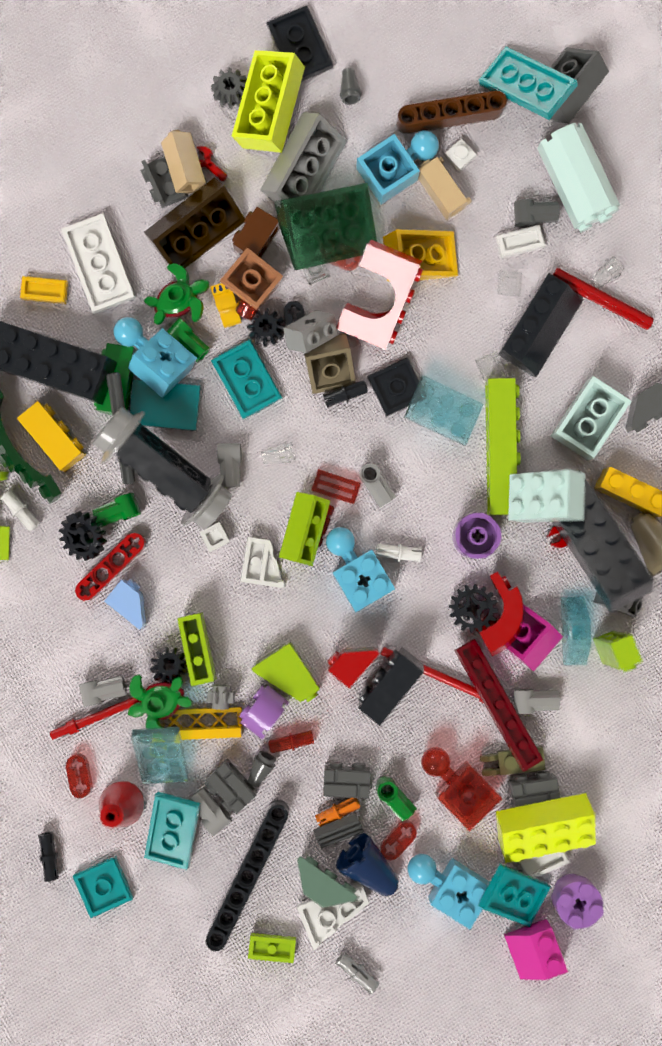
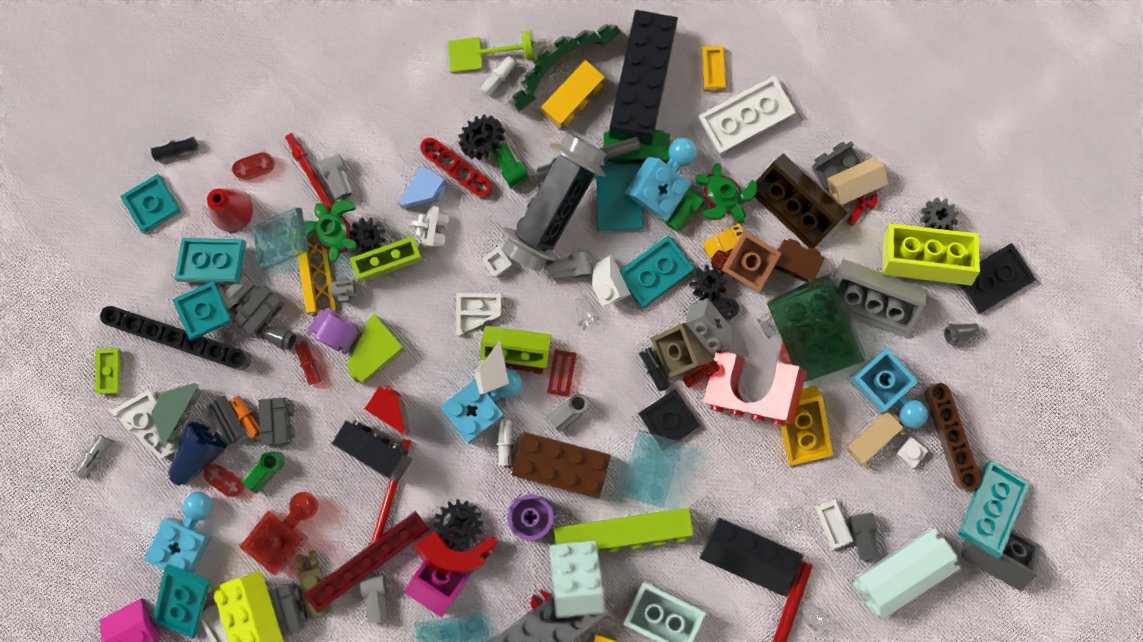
camera: 85 degrees right, 5 degrees down
(169, 602) = (433, 218): none -> white hips
(224, 844) = (202, 310): none -> teal tile
(250, 426) = (608, 282): none -> white slope
(328, 554) = (492, 372): none -> white slope
(356, 347) = (701, 373): none -> clear red axle
(429, 498) = (561, 465): none -> reddish brown brick

